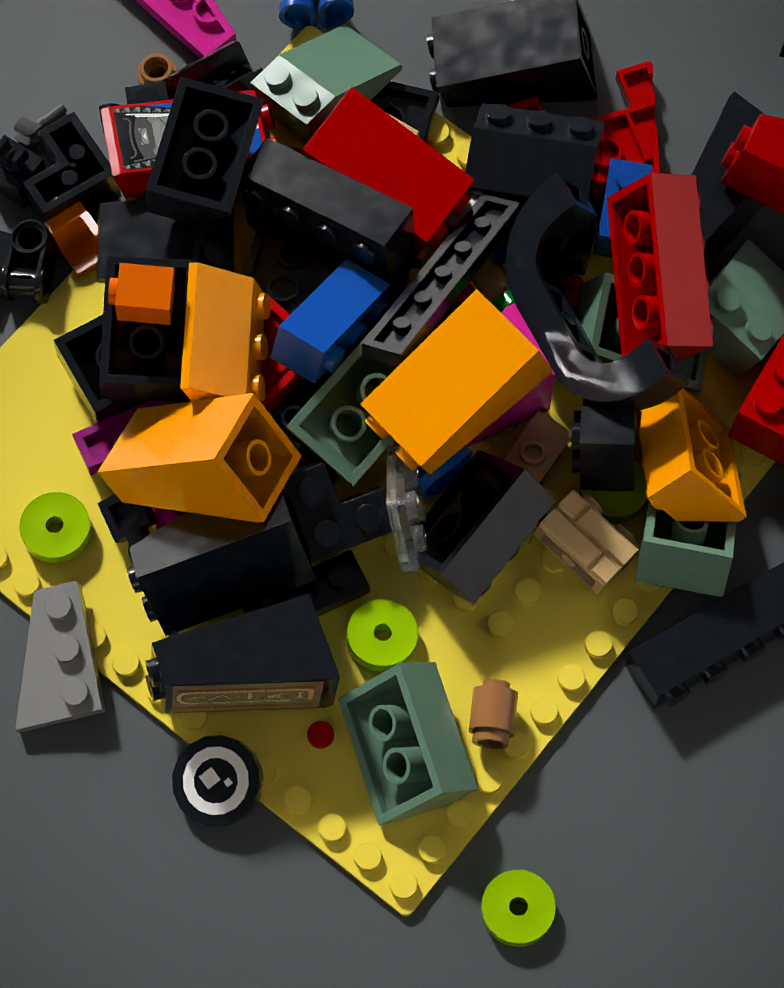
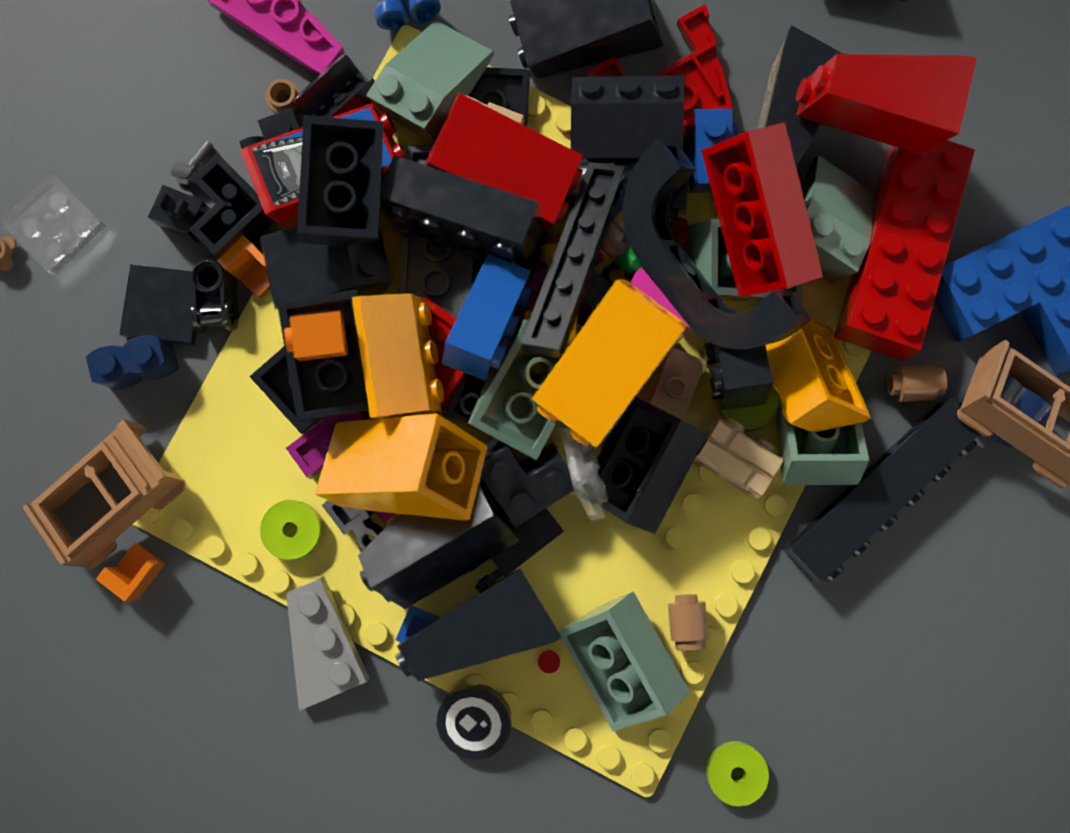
camera: 10 degrees left, 15 degrees up
(385, 616) = (599, 568): lime piece -> none

